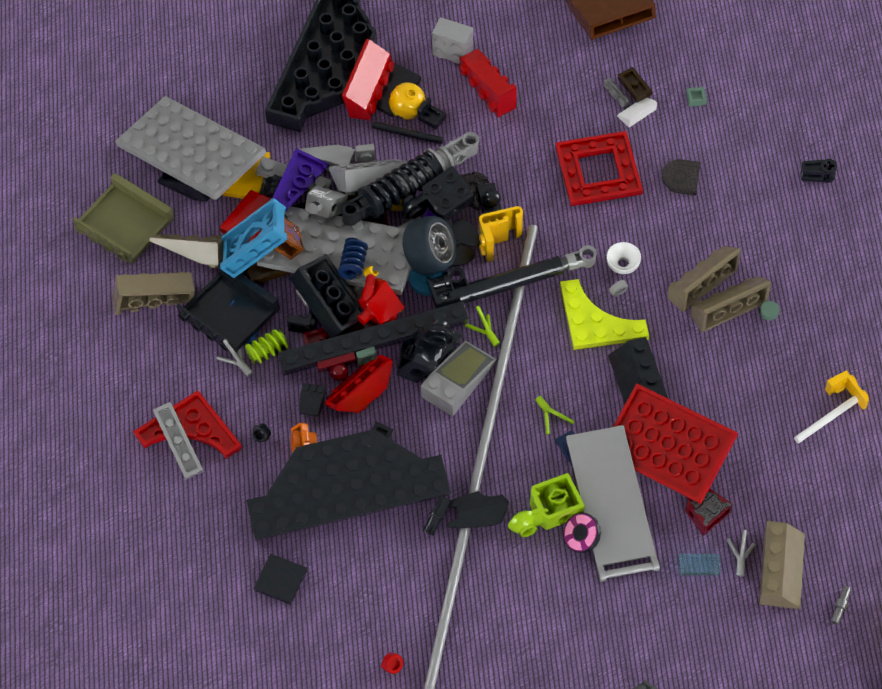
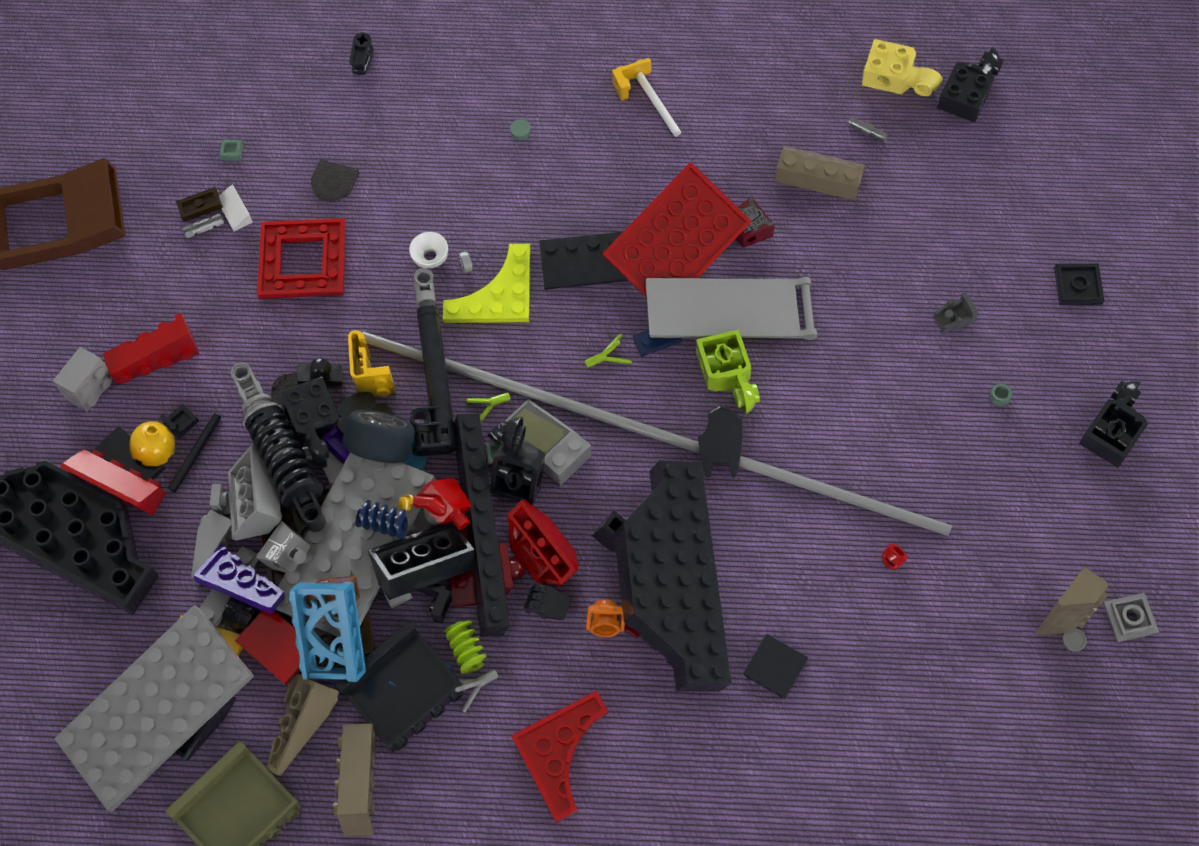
camera: 80 degrees left, 5 degrees up
(178, 440) = (579, 765): light grey plate -> none
(258, 436) = (582, 666): black plate -> none
(365, 356) = (500, 530): sand green tile -> none
(436, 515) = (722, 485): black axle -> none
(582, 532) = (763, 342): tile -> none
(699, 564) = (807, 244): clear light blue tile -> none
(704, 277) = (471, 177): dark tan slope -> none
(730, 303) = (507, 158): dark tan slope -> none
(741, 558) = (807, 204): light grey plant -> none

